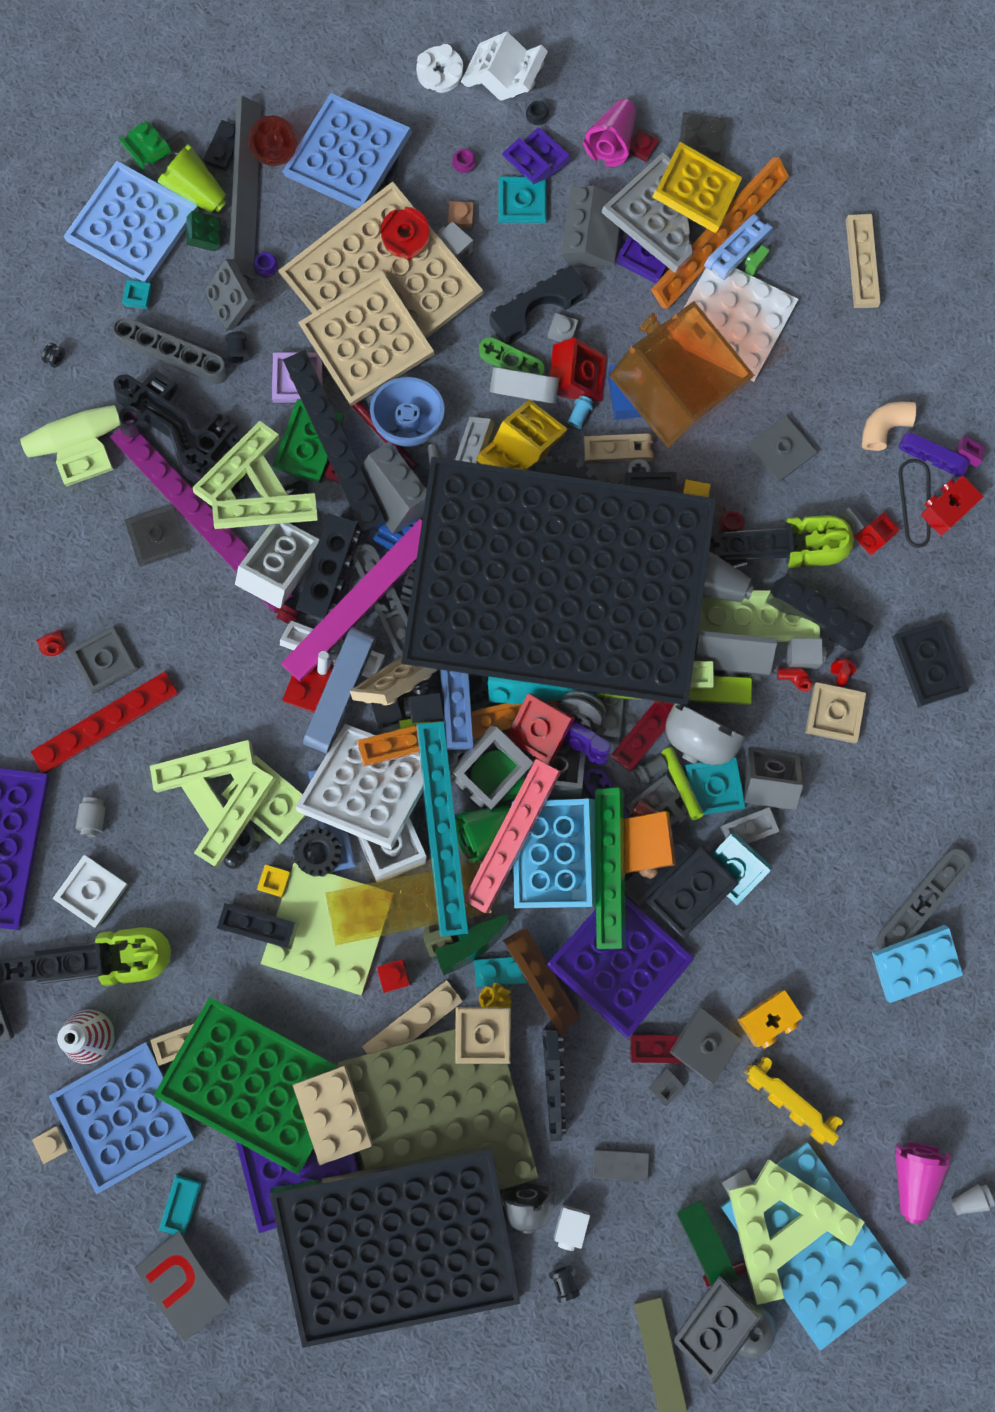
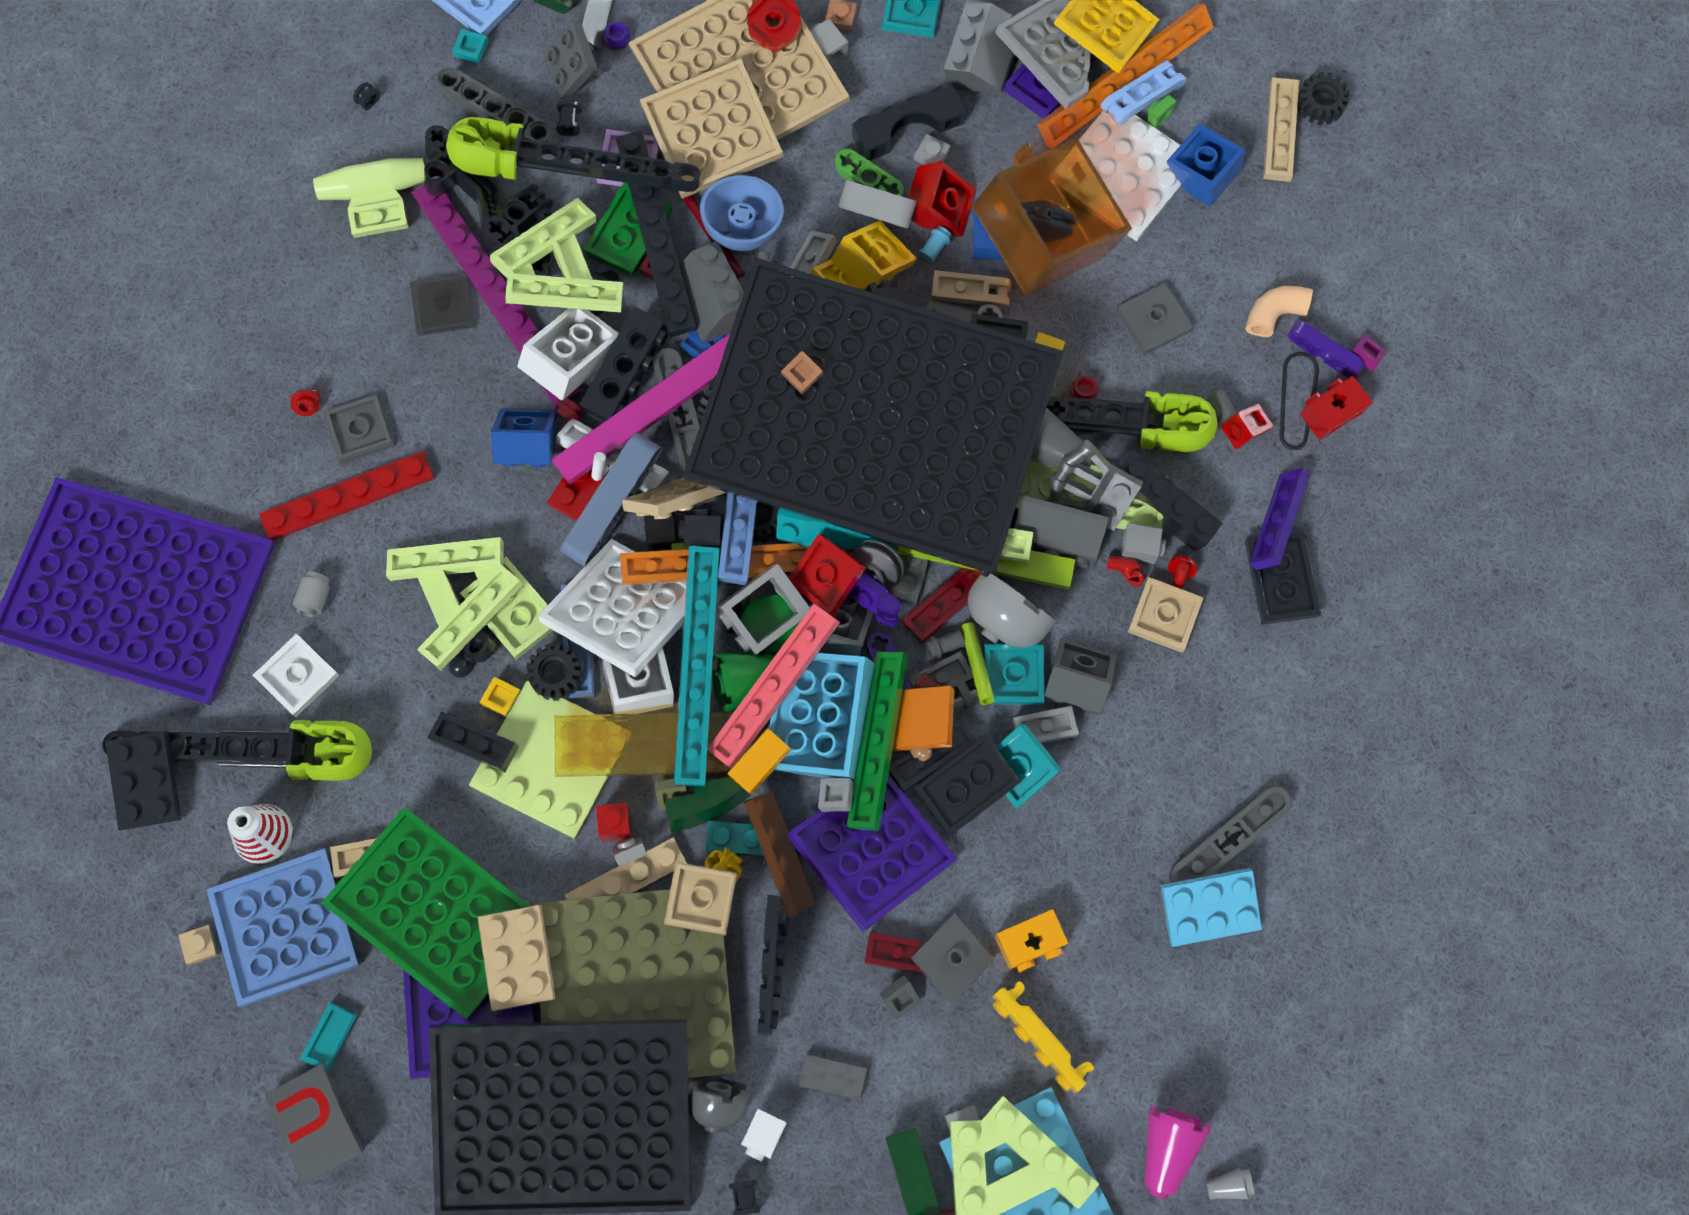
camera: 10 degrees right, 5 degrees down
(162, 384) = (477, 141): none -> piece
(251, 644) = (524, 437): none -> blue slope
(410, 998) = (628, 850): none -> light grey plate
(491, 554) = (802, 372): none -> nougat plate
(511, 904) = (759, 761): none -> light orange tile
(582, 923) = (835, 794): none -> light grey plate
(681, 377) = (1050, 219): none -> black hat
(774, 614) = (1112, 491): none -> flat silver plate
(804, 303) = (1206, 164): none -> blue slope
(900, 216) = (1326, 85): none -> black tyre
(920, 613) = (1279, 519): none -> dark purple plate

